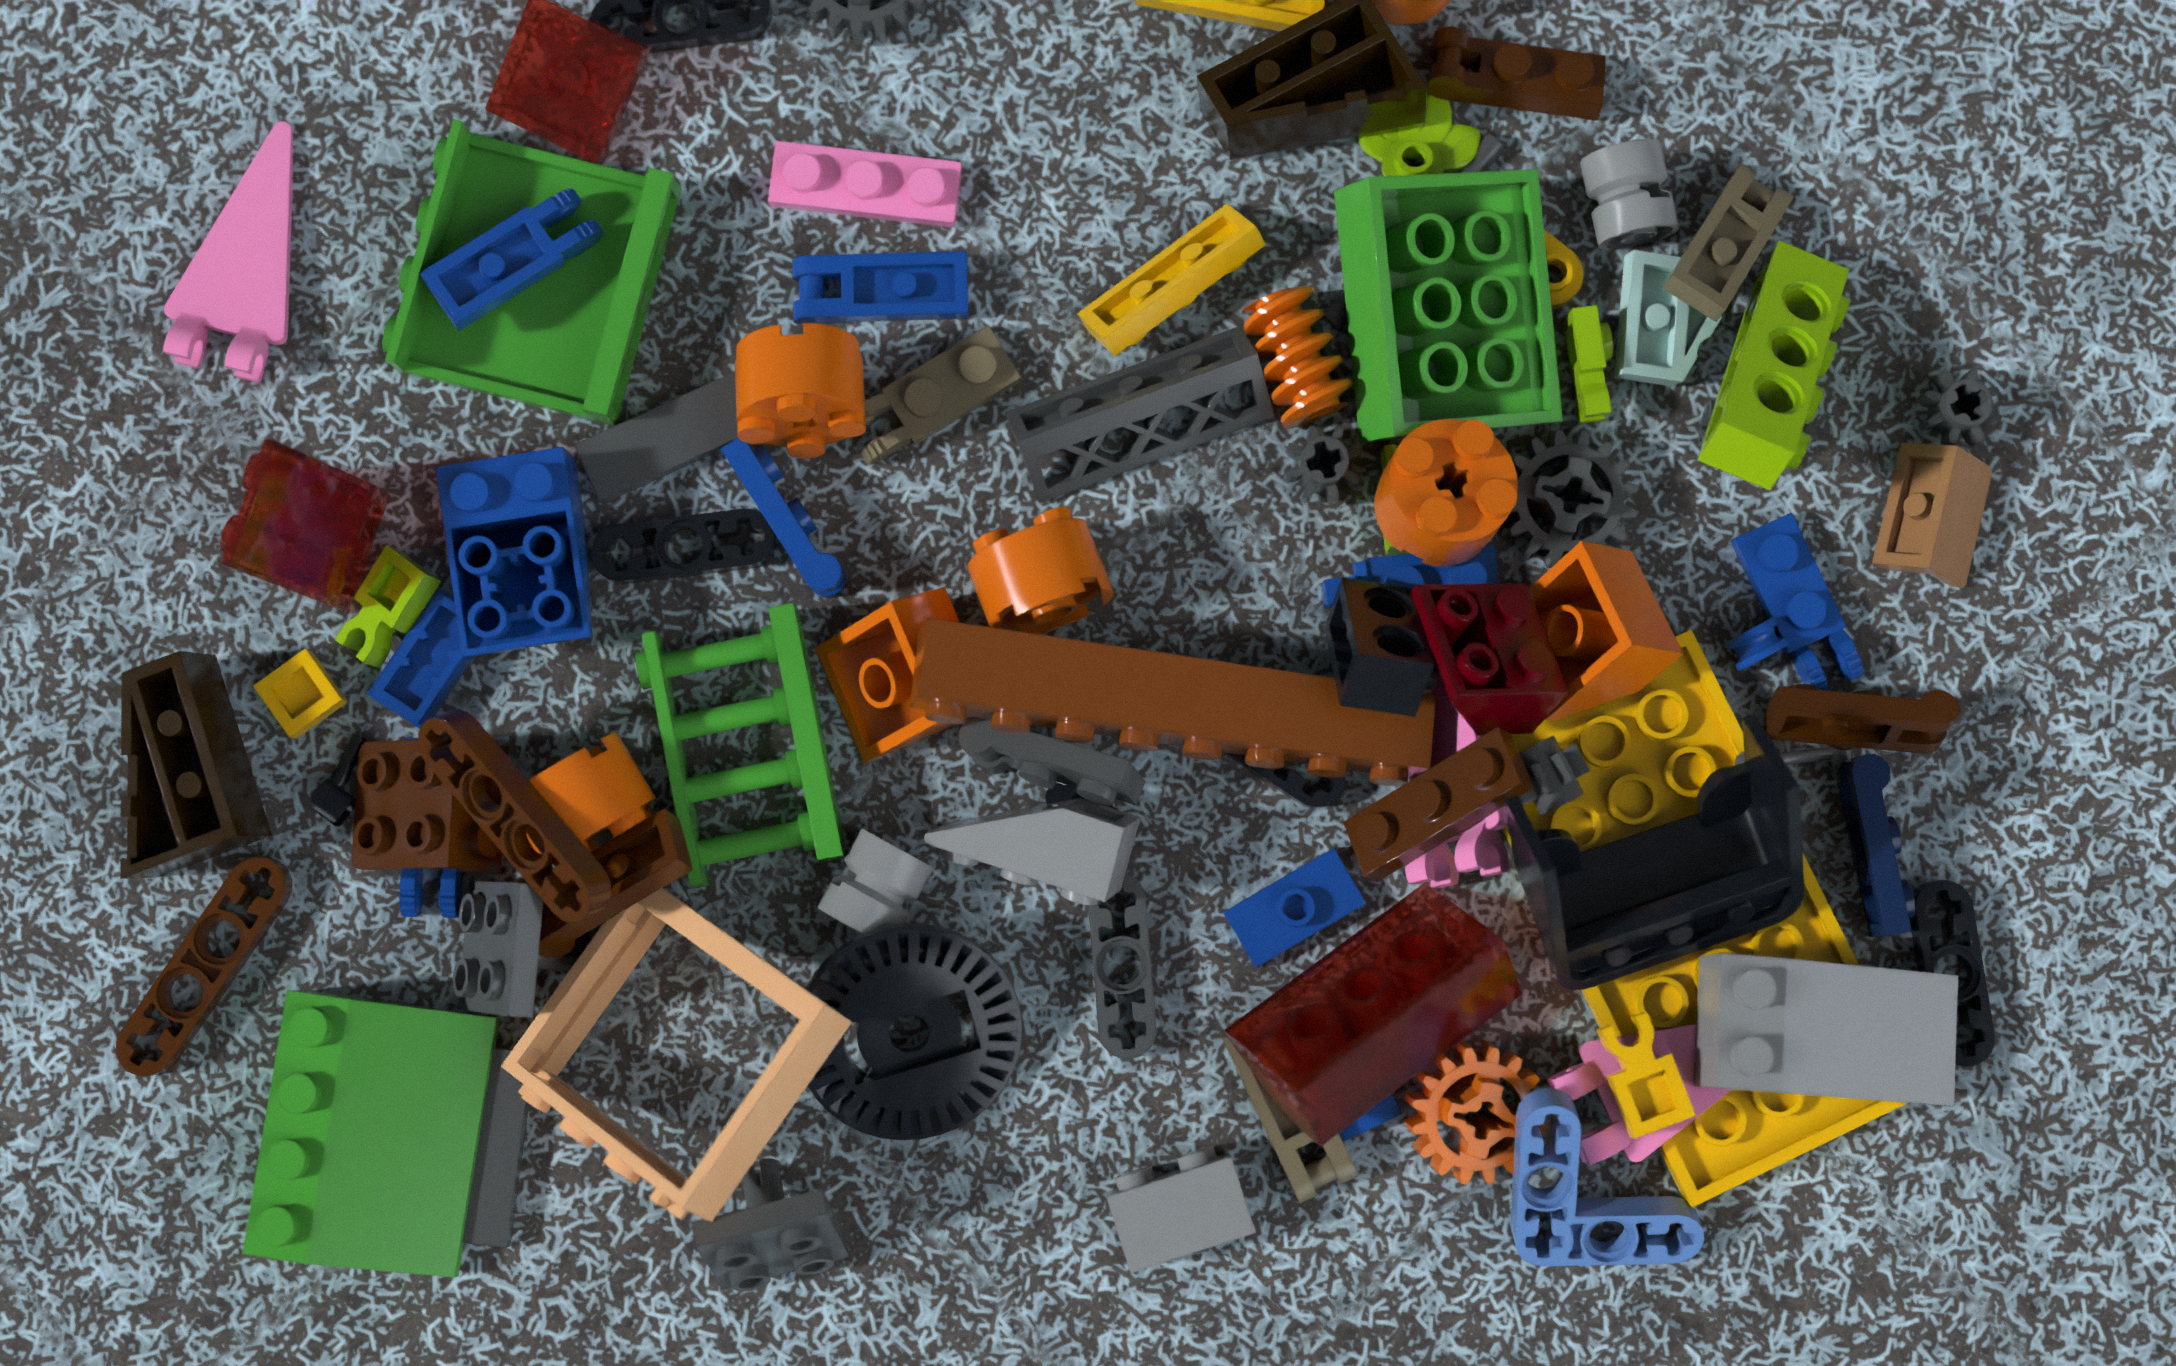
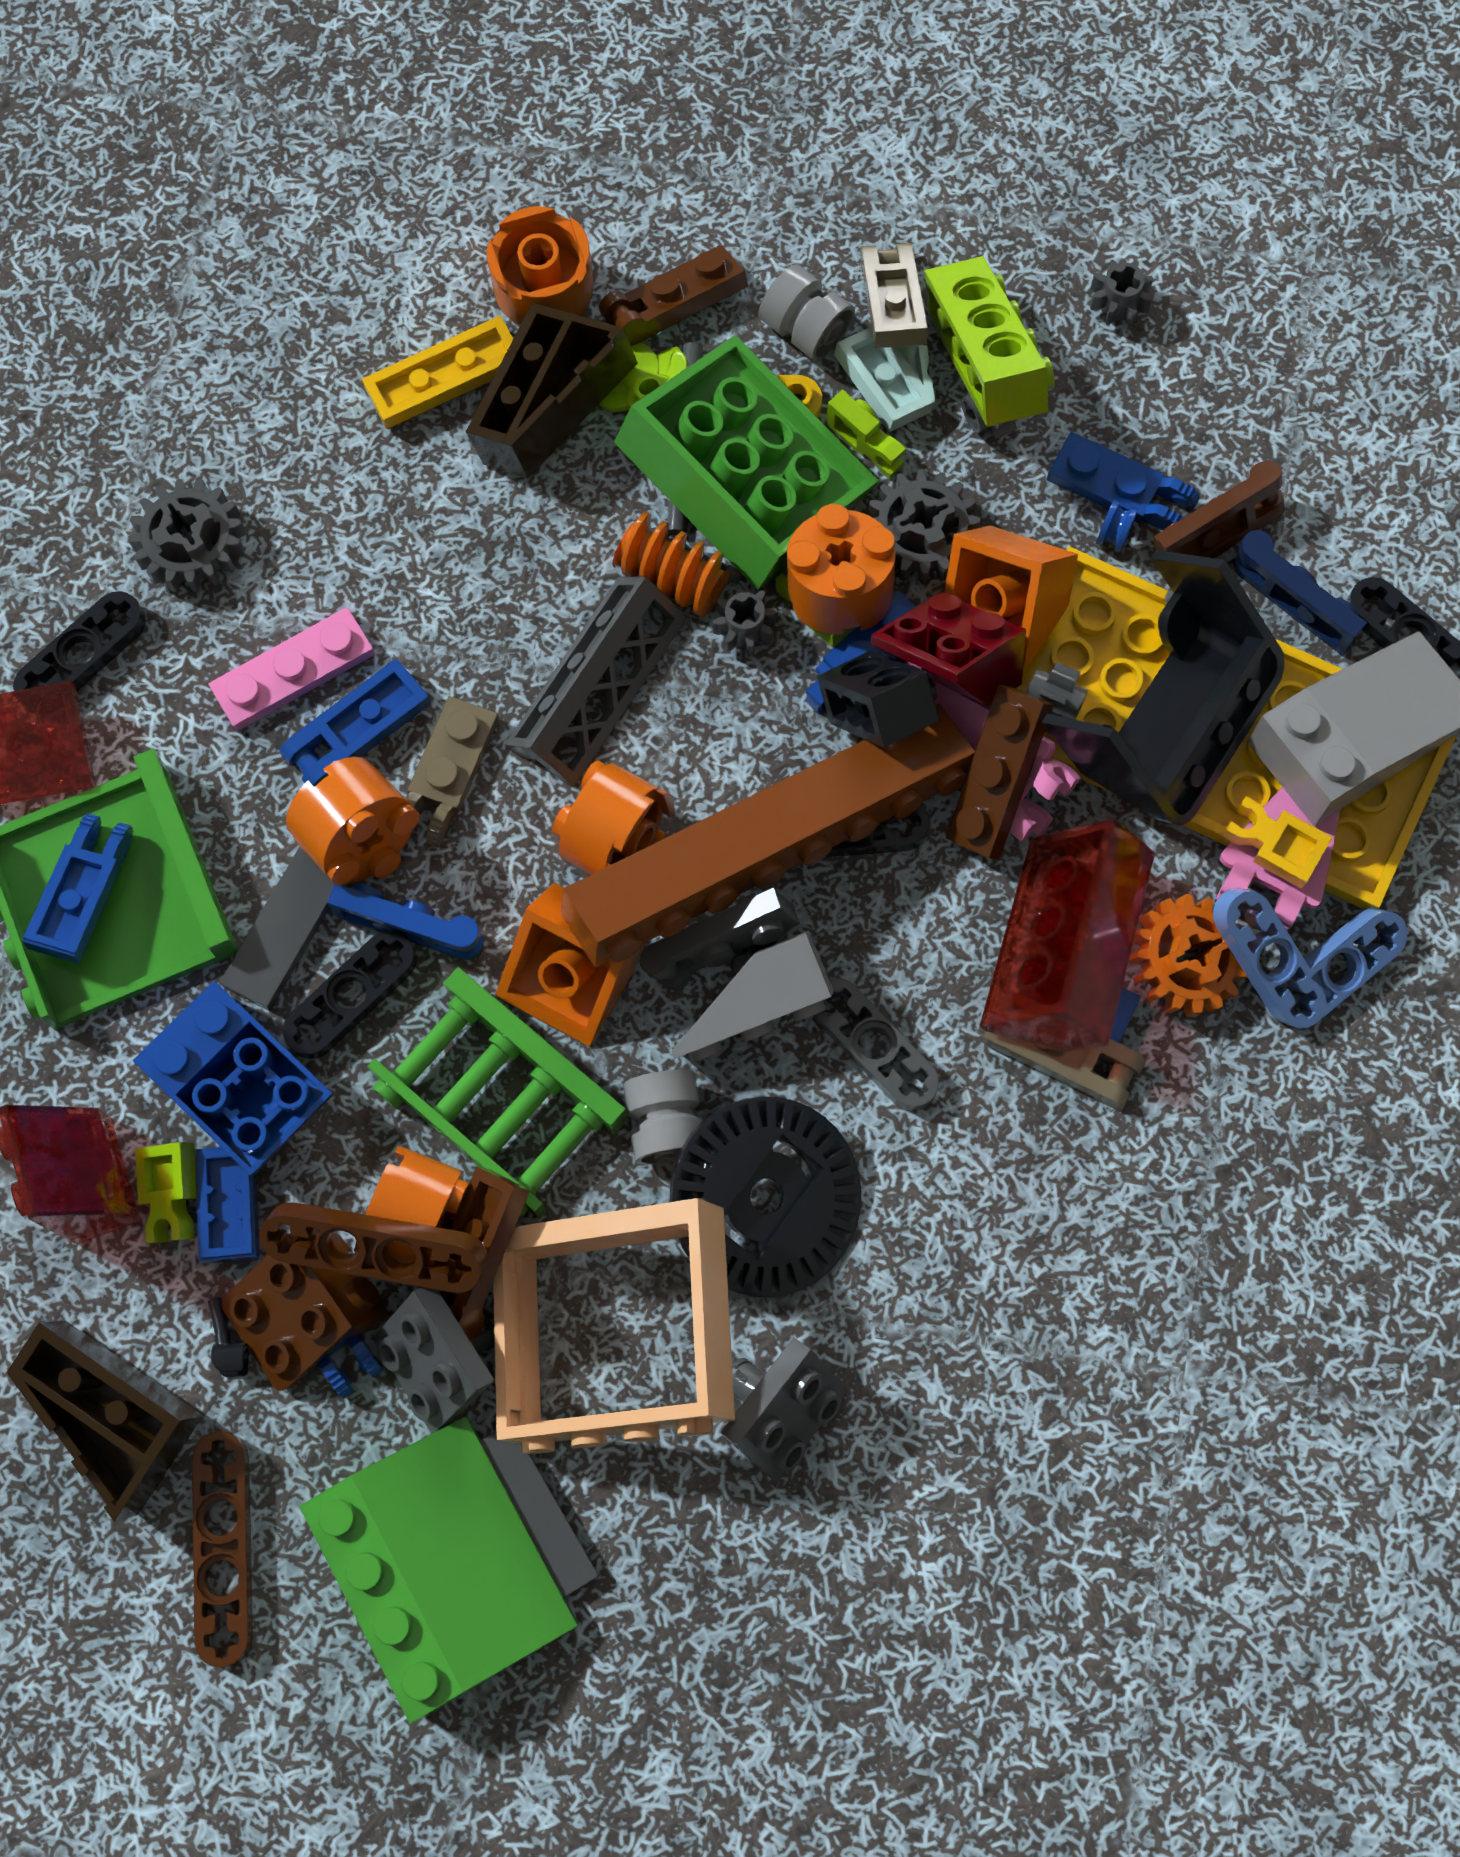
camera: 35 degrees left, 10 degrees down
(300, 693) = (149, 1299): yellow plate -> none
(1171, 279) = (549, 578): yellow plate -> none
(1179, 1209) = (1047, 1174): light grey brick -> none
(1294, 907) = (958, 919): blue plate -> none
(1933, 512) = (1157, 367): medium nougat panel -> none

